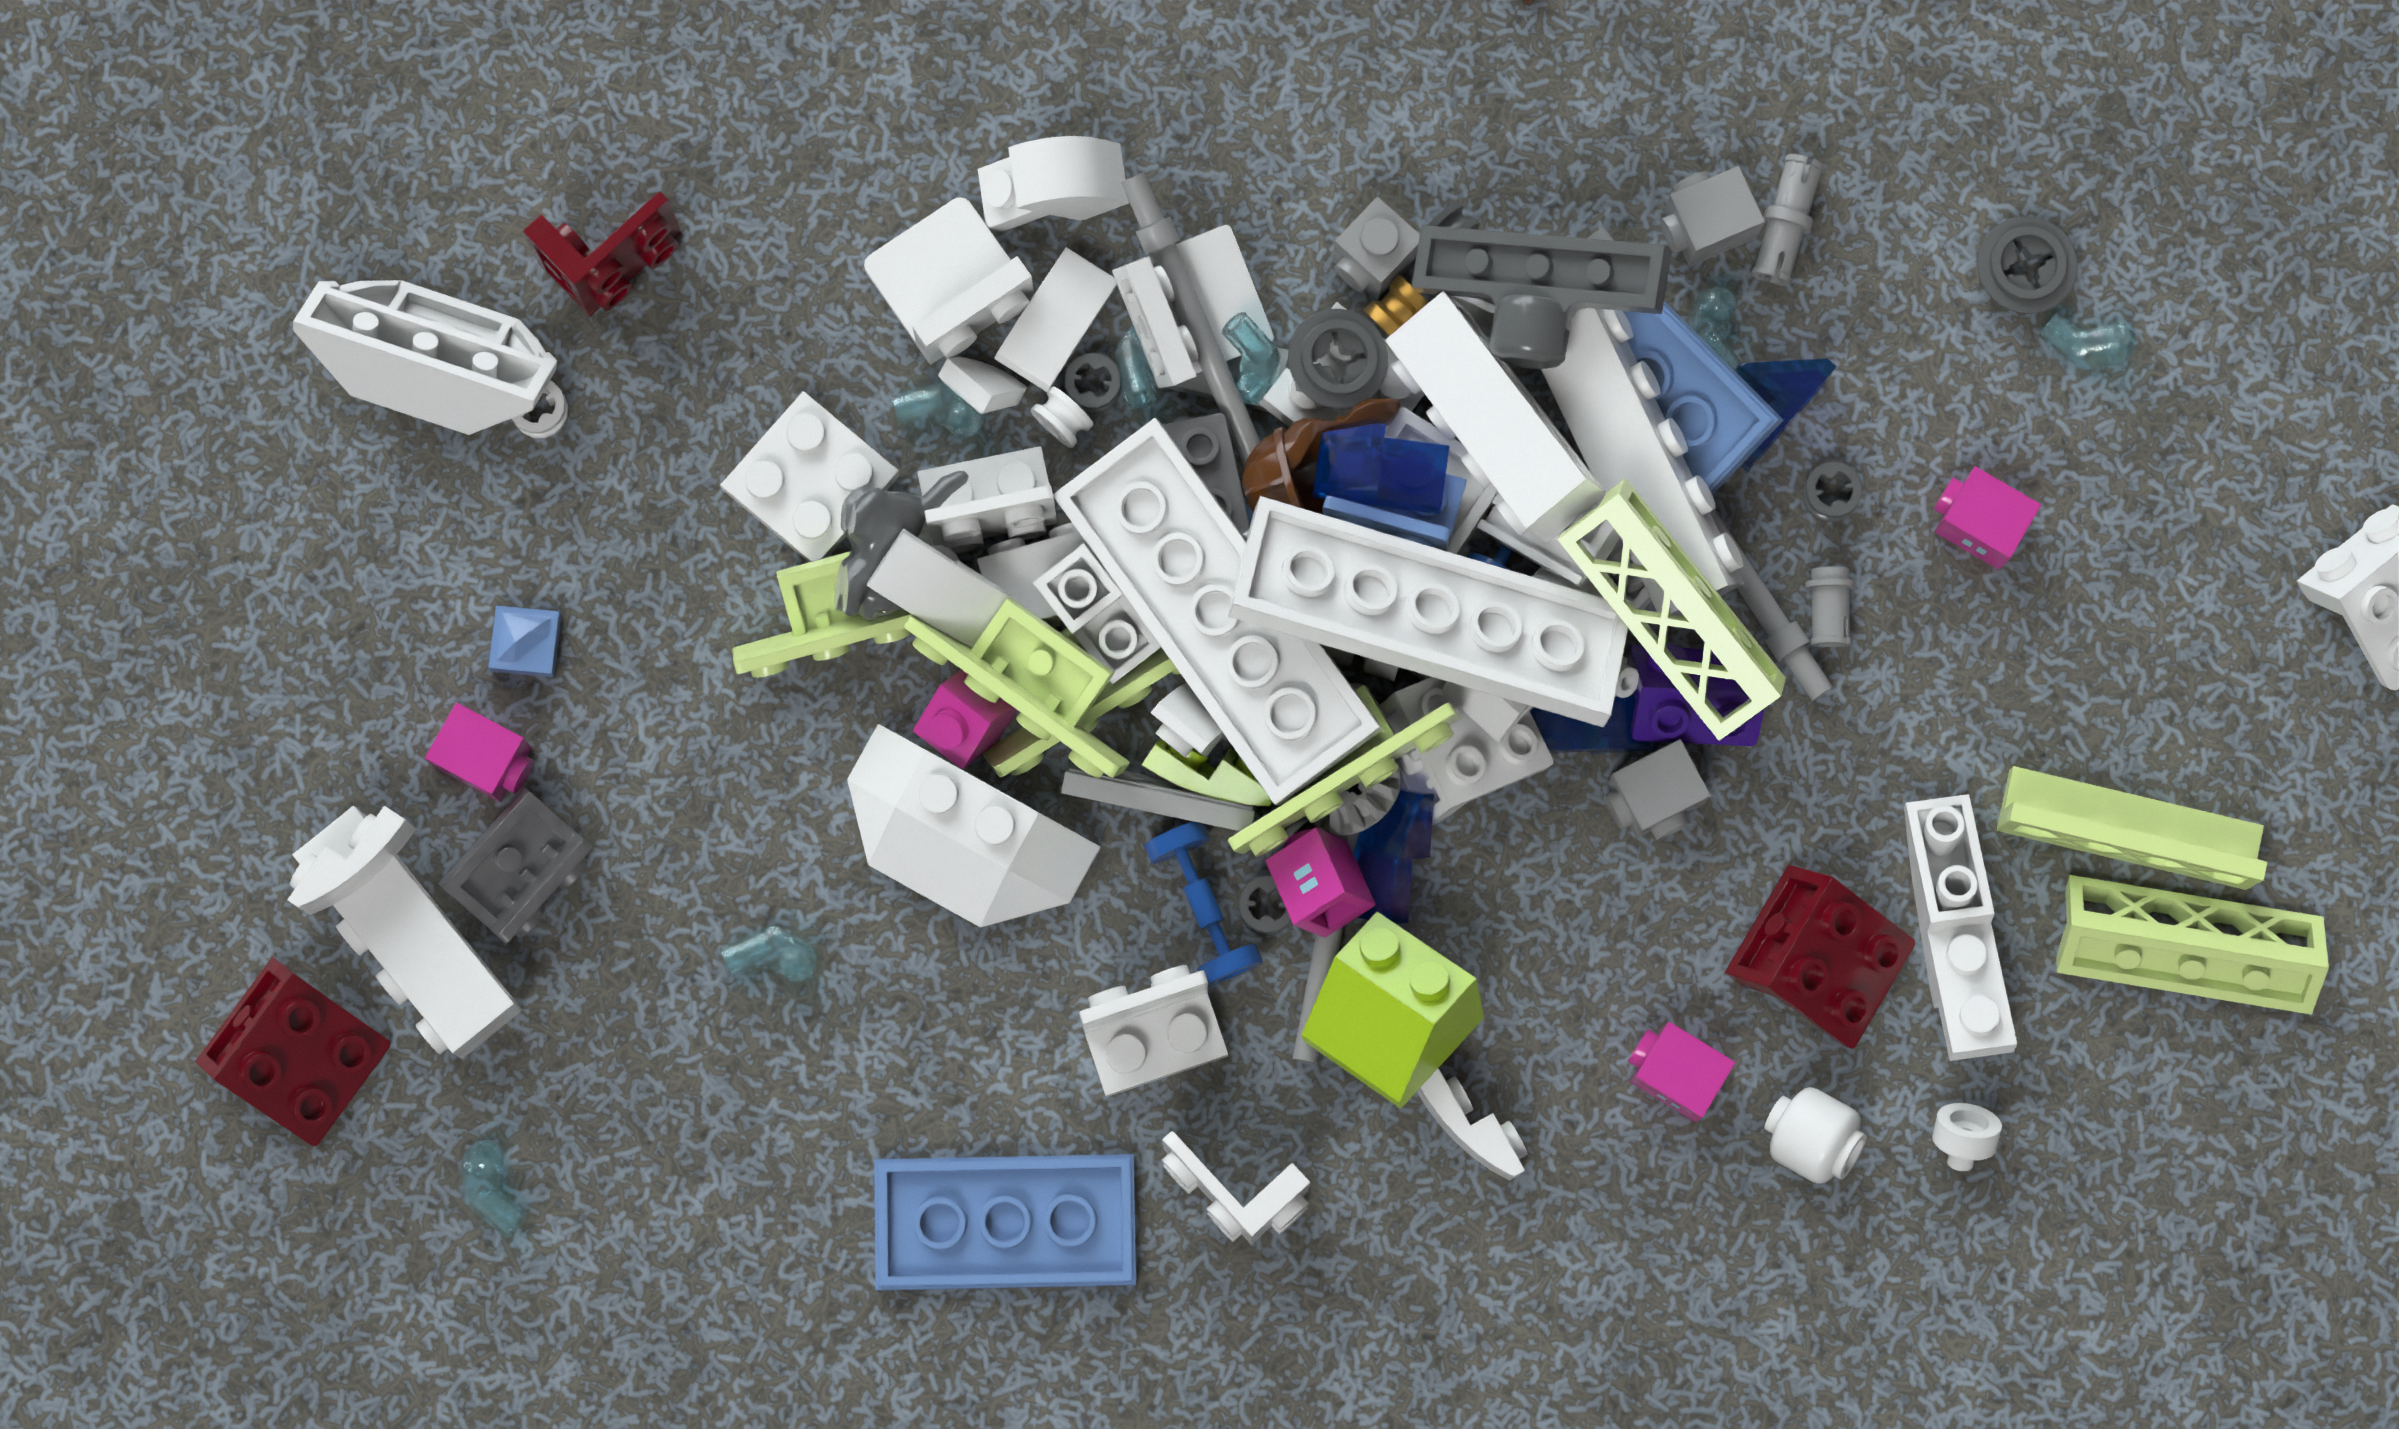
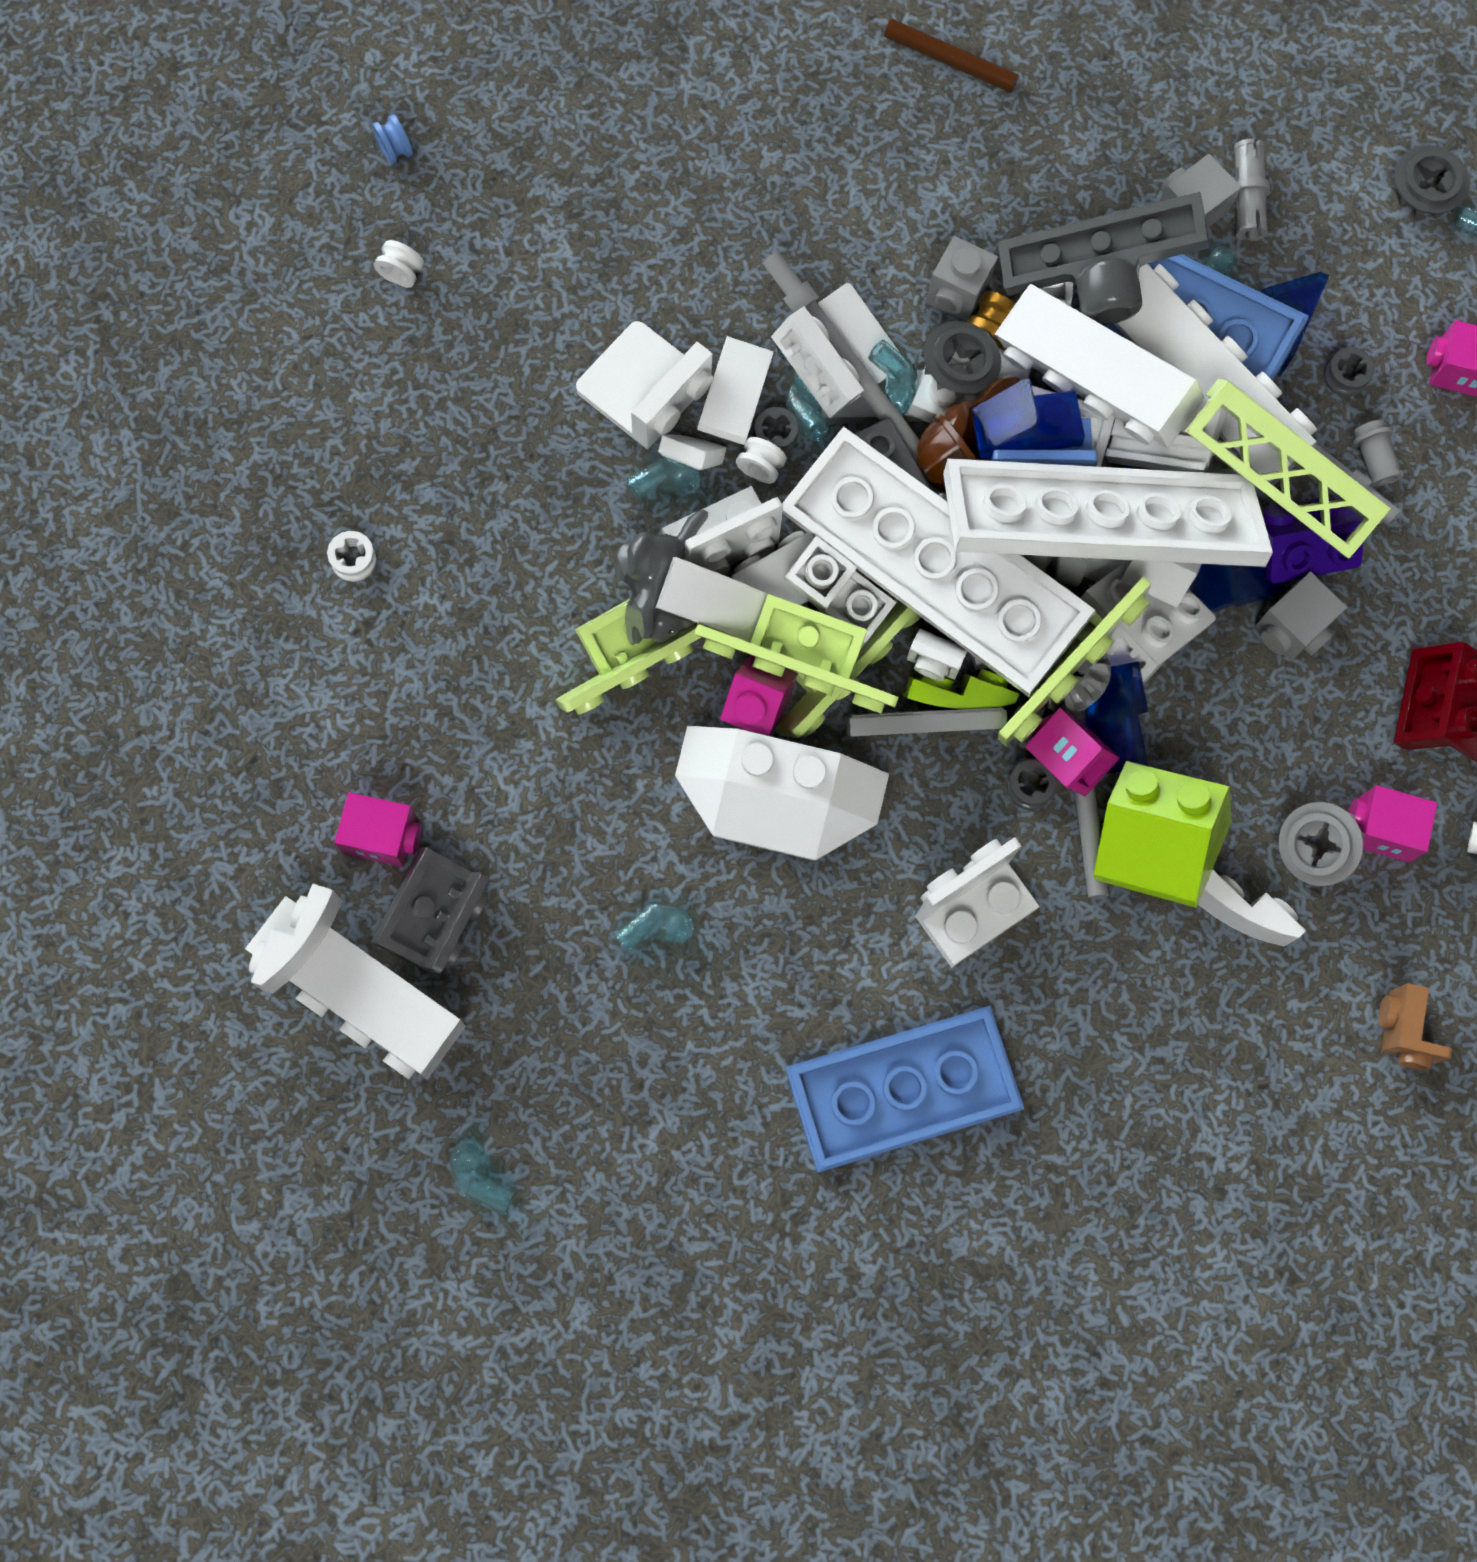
camera: 20 degrees left, 5 degrees down
(293, 1053) = (286, 1111): dark red bracket -> none
(425, 352) = (250, 535): white wedge -> none
(525, 641) = (389, 736): medium blue tile -> none
(605, 273) = (375, 439): dark red bracket -> none
(691, 48) = (399, 263): none -> white bush
(803, 475) = (575, 556): white plate -> none
(1053, 177) = (700, 284): white brick -> none
(1202, 901) = (950, 754): blue wheel -> none
(1274, 1206) = (1084, 1025): white bracket -> none
(1563, 1078) = (1301, 856): none -> light grey gear
(1612, 1301) = (1403, 1022): none -> medium nougat bracket

